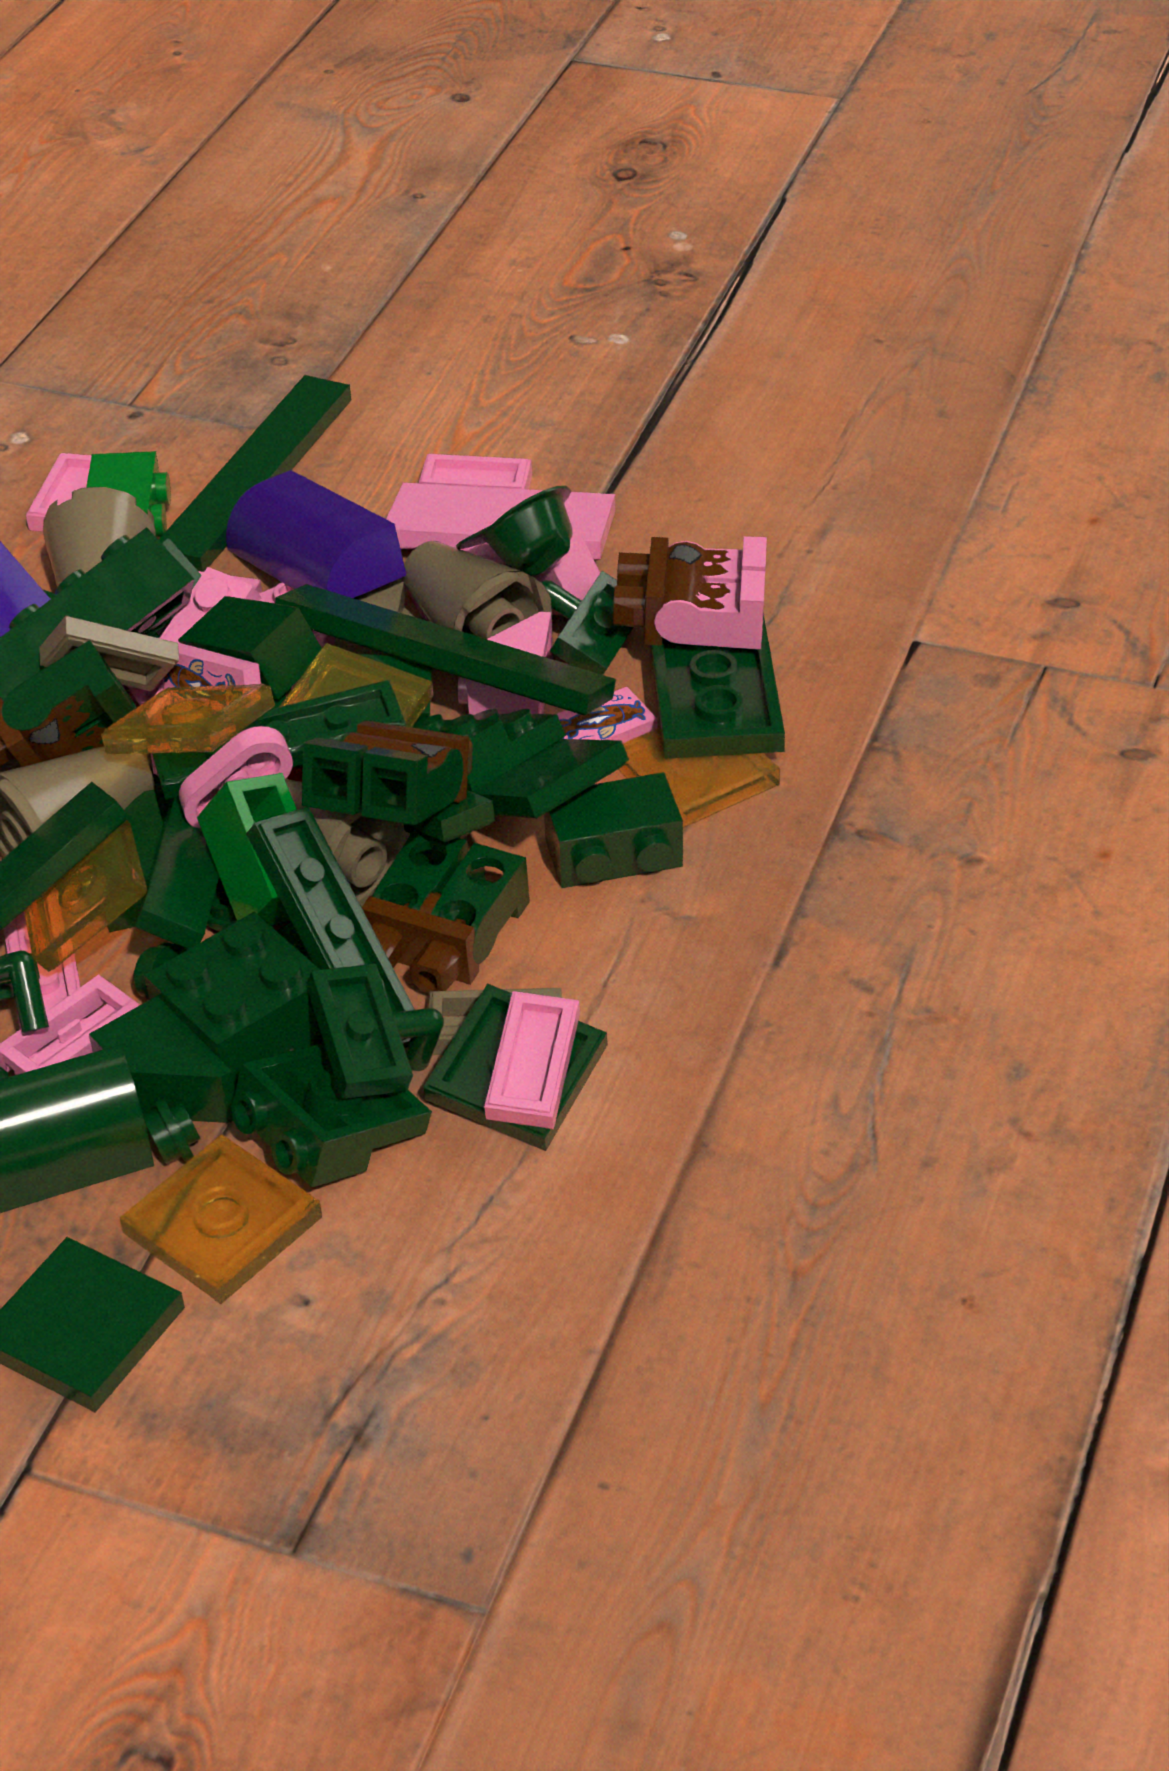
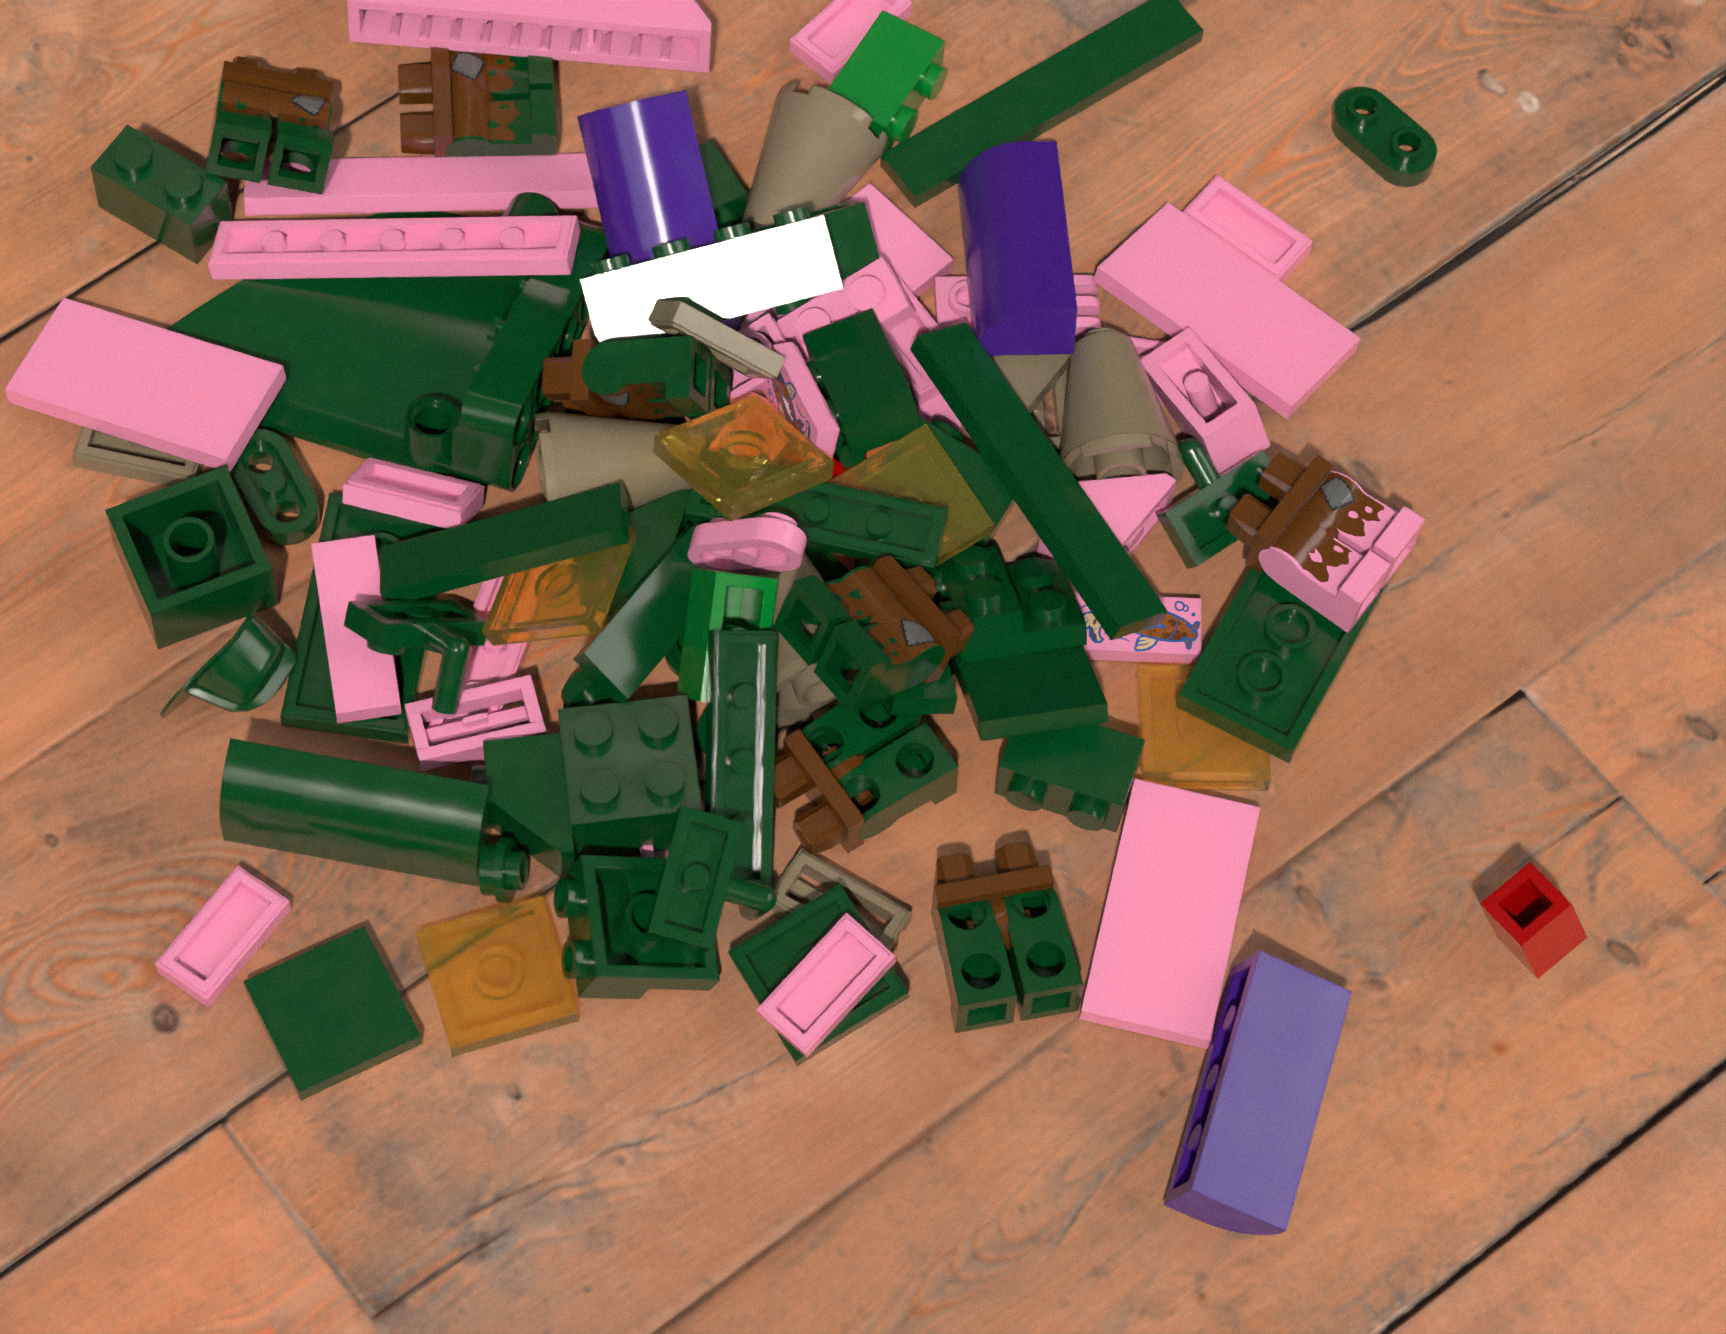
camera: 25 degrees right, 20 degrees up
(531, 533) = (1191, 392): dark green piece -> none
(532, 390) = (1379, 135): none -> dark green plate
(657, 965) = (997, 915): none -> dark green hips
(776, 893) = (1170, 914): none -> bright pink tile
(955, 967) = (1258, 1097): none -> brick
(1063, 744) = (1533, 920): none -> red brick

